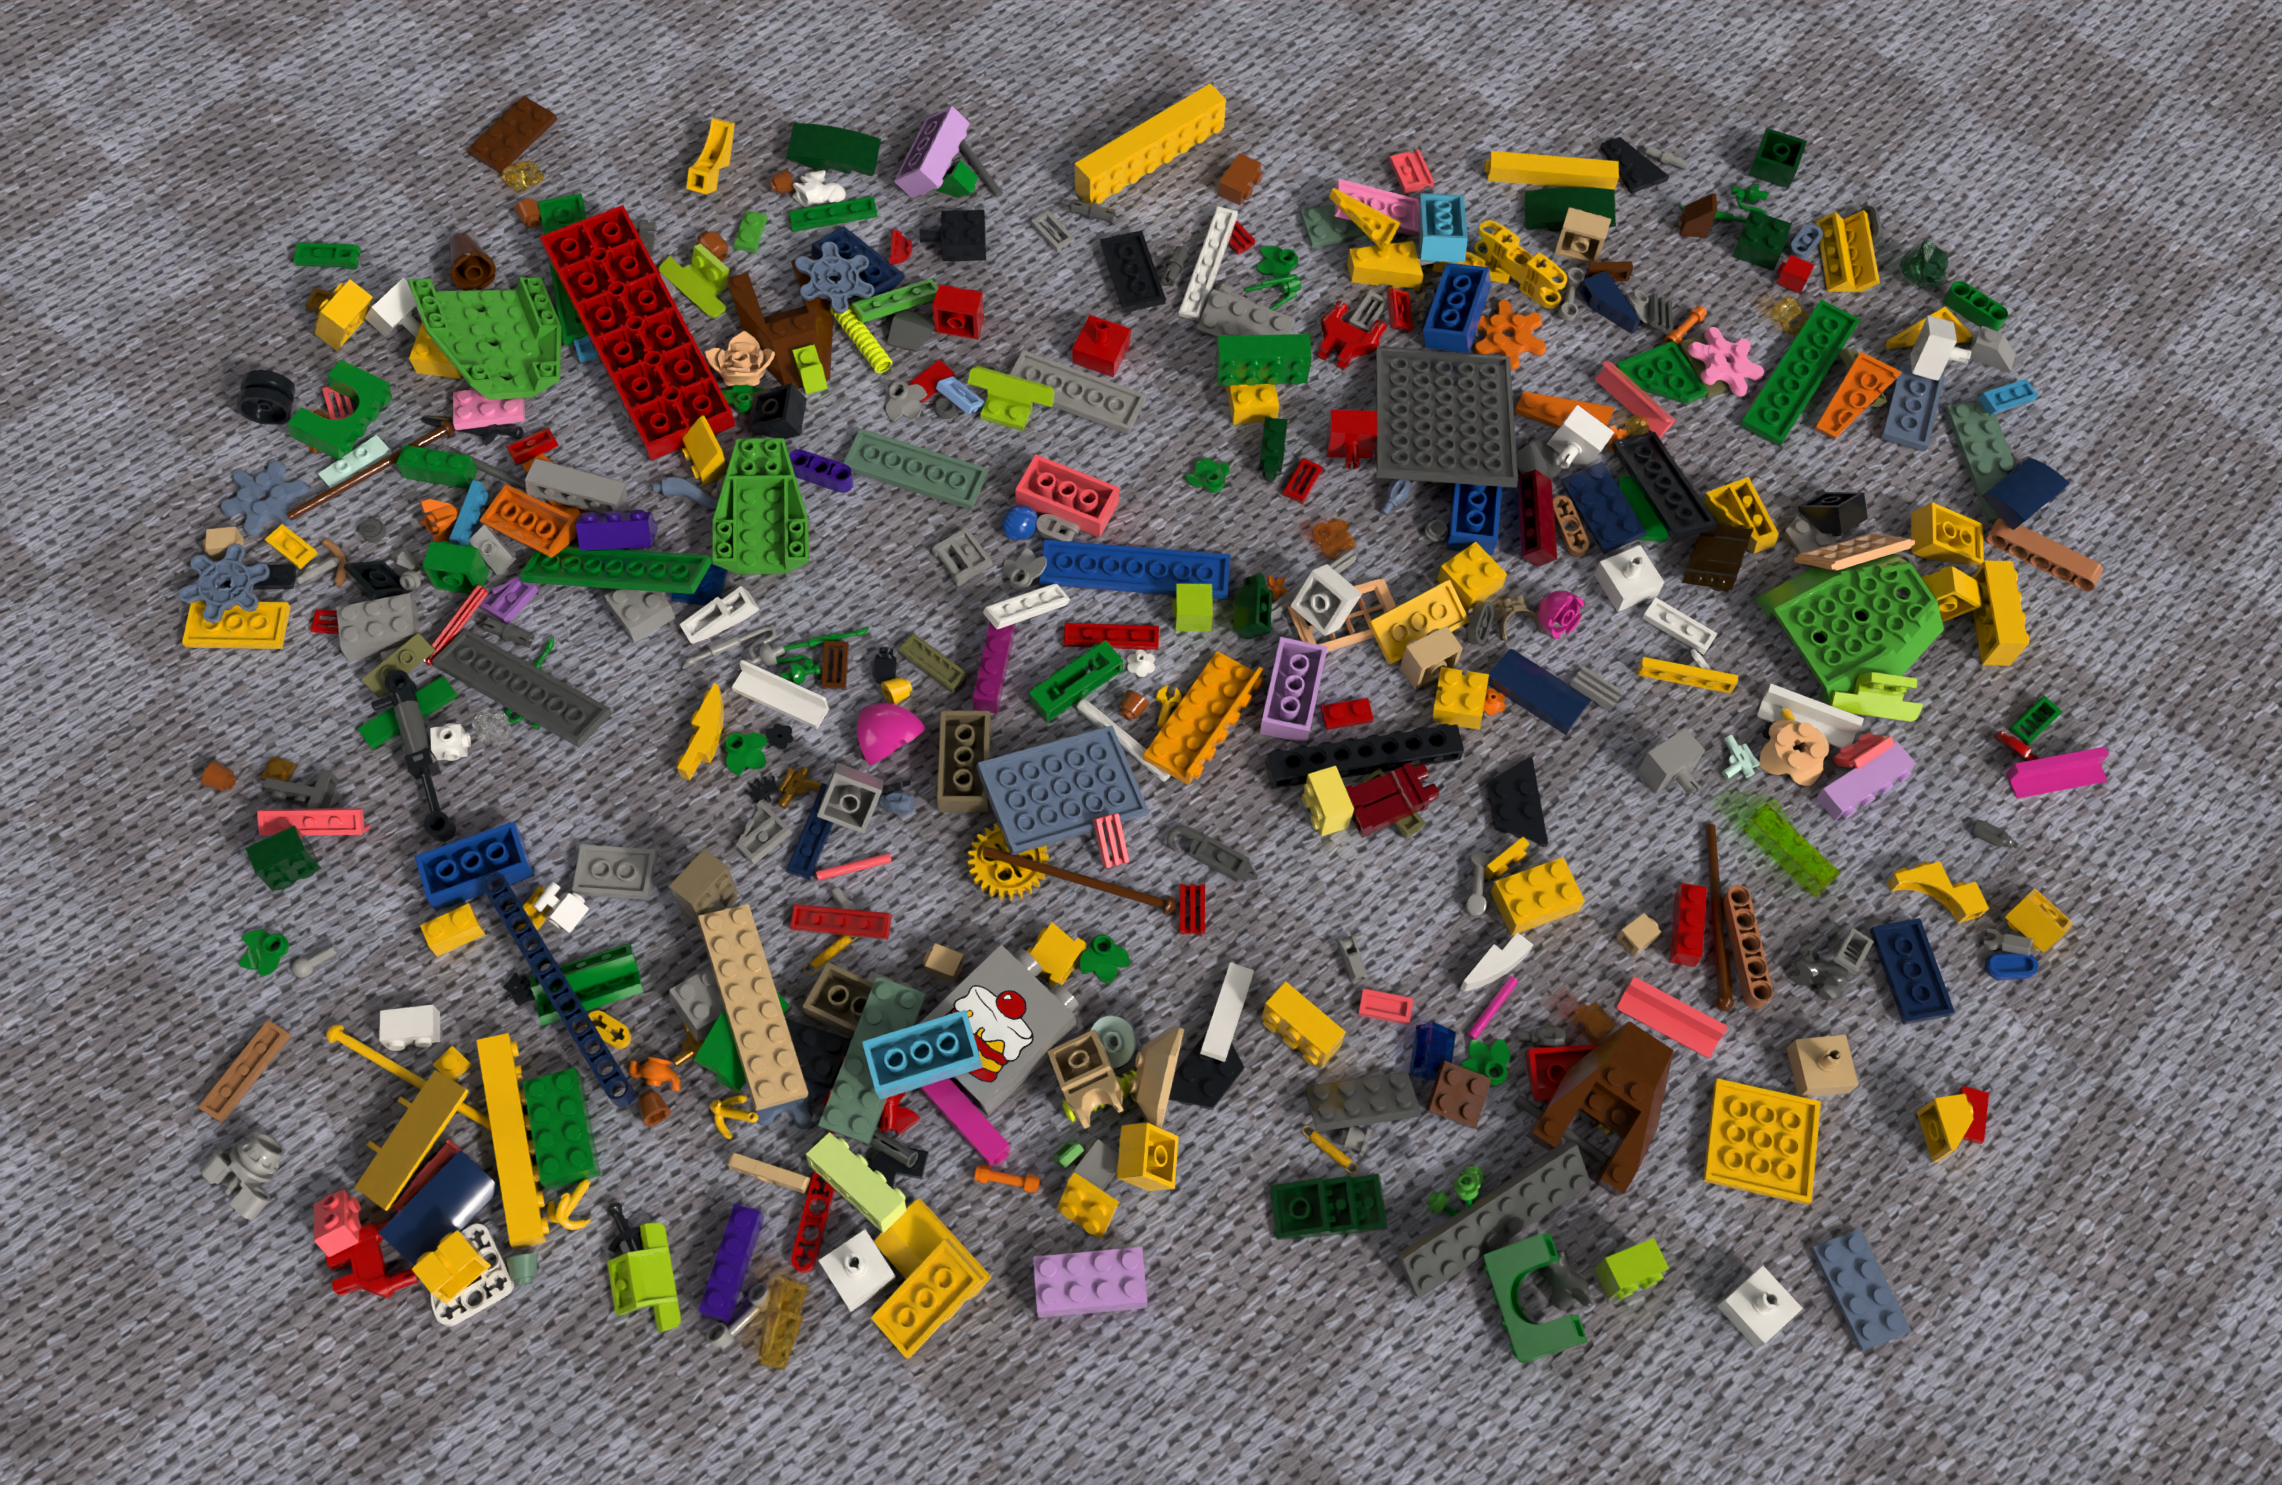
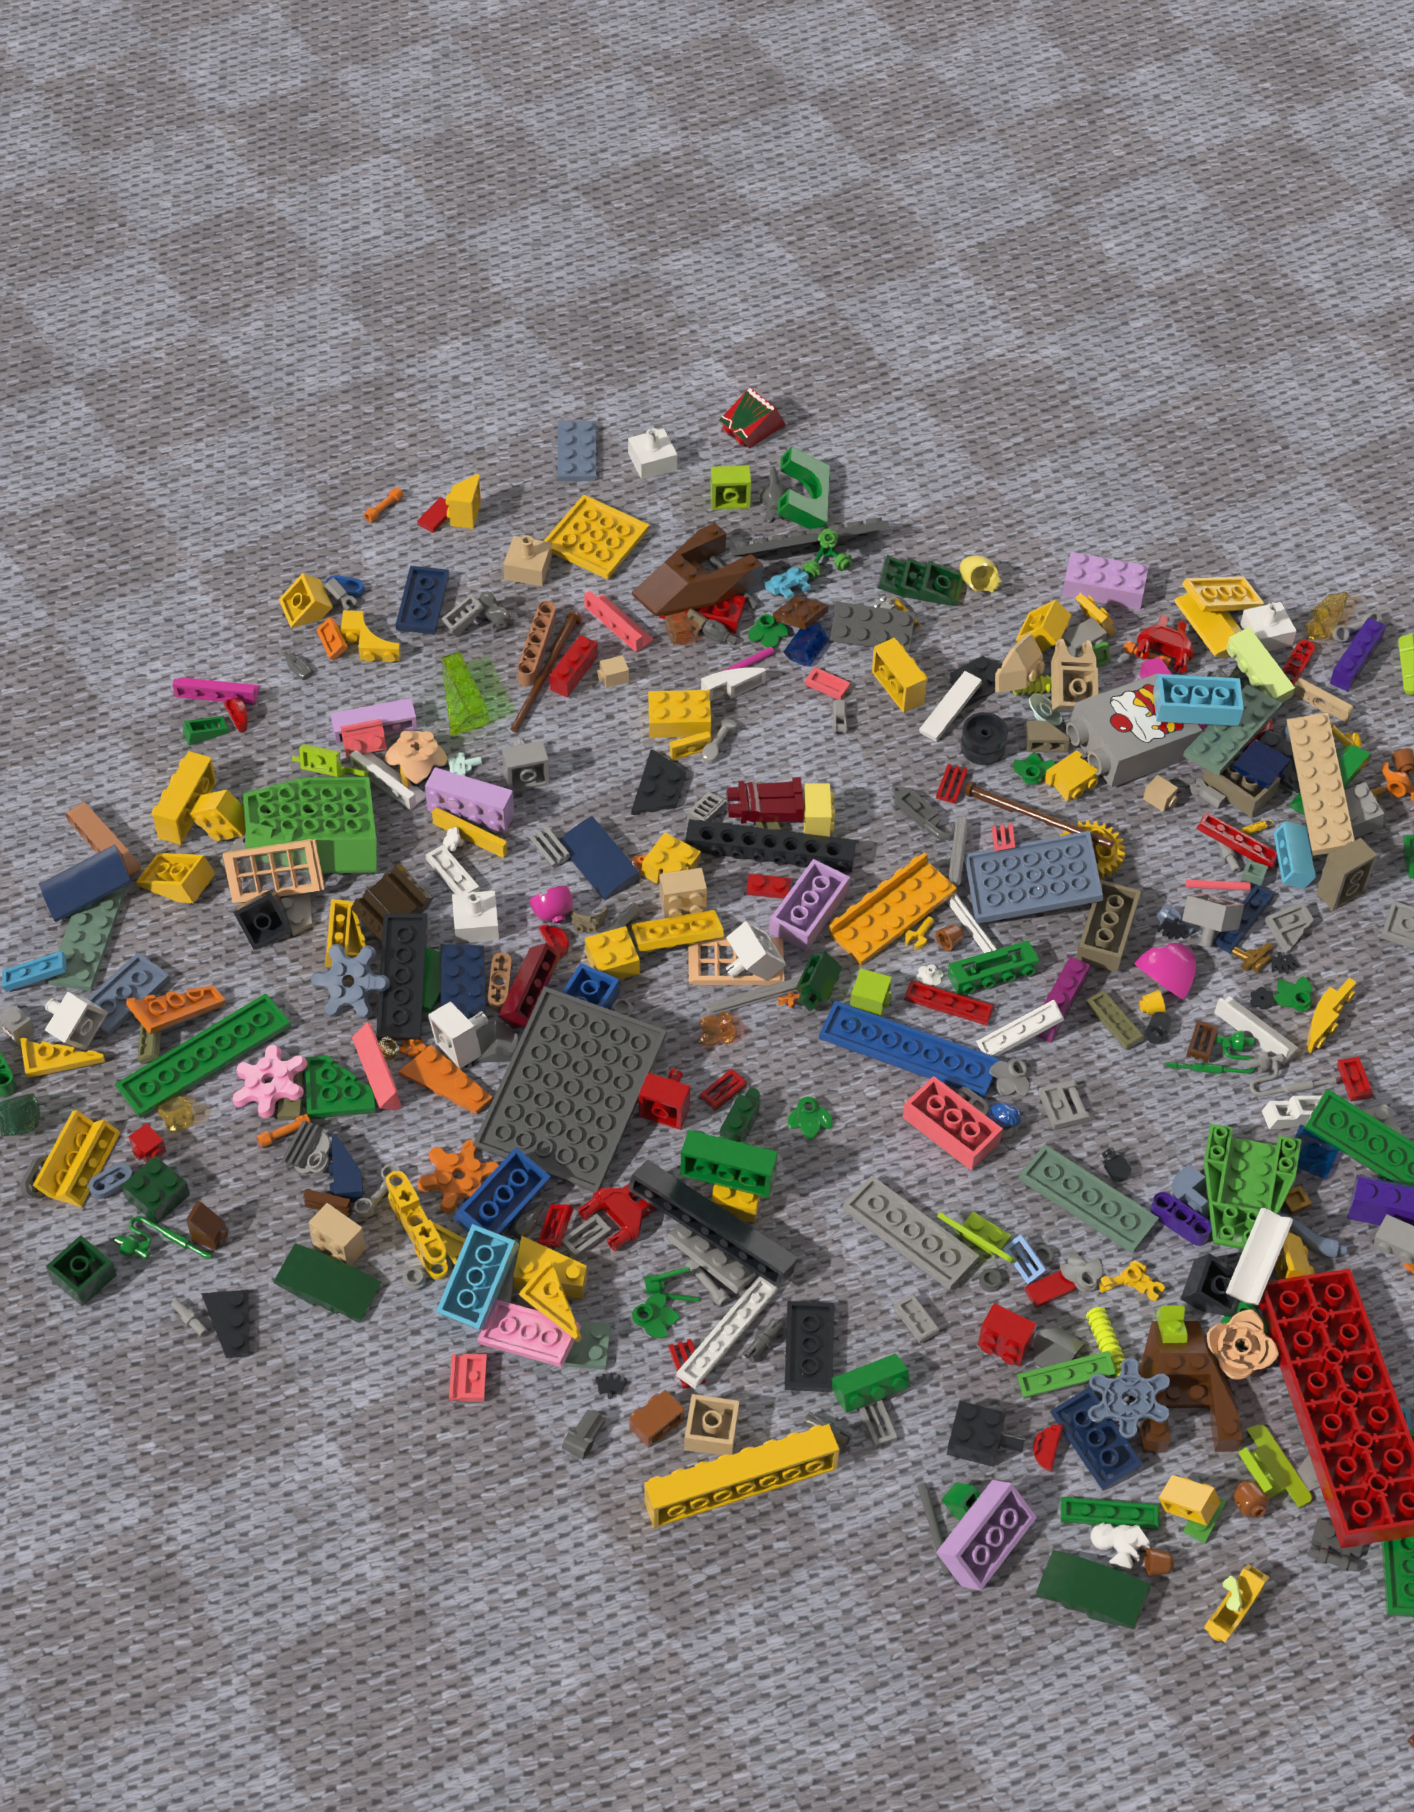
camera: 160 degrees left, 10 degrees down
(666, 668) = (1354, 1079): none -> red plate
(705, 522) = (1297, 1201): none -> pearl gold plate
(713, 156) = (1234, 1602): none -> yellowish green piece
(734, 425) = (1259, 1256): none -> white panel
(765, 225) = (1189, 1499): none -> yellow brick
(771, 920) = (1294, 855): none -> medium azure brick
(814, 889) = (1254, 872): none -> sand green plate
(819, 495) = (1188, 1187): none -> sand blue brick
(829, 1014) = (1261, 764): none -> clear blue tile
(855, 410) = (1134, 1277): none -> yellow piece
(895, 508) = (1116, 1165): none -> black arm
(987, 1201) = (1166, 641): none -> red connector
(1045, 319) = (916, 1318): none -> light grey plate
(1066, 247) = (871, 1382): none -> green brick
(1101, 345) = (870, 1267): red brick -> none
(1103, 1000) = (1045, 737): none -> dark tan slope
(1156, 811) = (958, 851): none -> light grey axle
(1177, 955) = (984, 738): none -> black wheel
(1191, 180) = (711, 1425): none -> tan brick
(1222, 320) = (713, 1223): none -> black brick
(1259, 1234) = (980, 573): none -> light yellow helmet
(1290, 201) = (610, 1386): none -> black piece
(1294, 152) = (581, 1438): none -> dark grey piece
(1458, 771) = (708, 816): none -> light grey slope
(1496, 1148) = (786, 581): none -> medium azure plate
(1534, 585) = (555, 938): none -> red tile
(1551, 170) = (321, 1331): yellow brick -> none
(1576, 1038) = (696, 621): none -> dark tan tile
(1657, 1422) = (751, 419): none -> slope
(1707, 699) = (470, 800): none -> lavender brick
(1710, 463) = (364, 981): none -> sand blue plate
(1970, 871) = (331, 638): none -> orange plate
(2040, 1127) = (373, 513): none -> orange bar

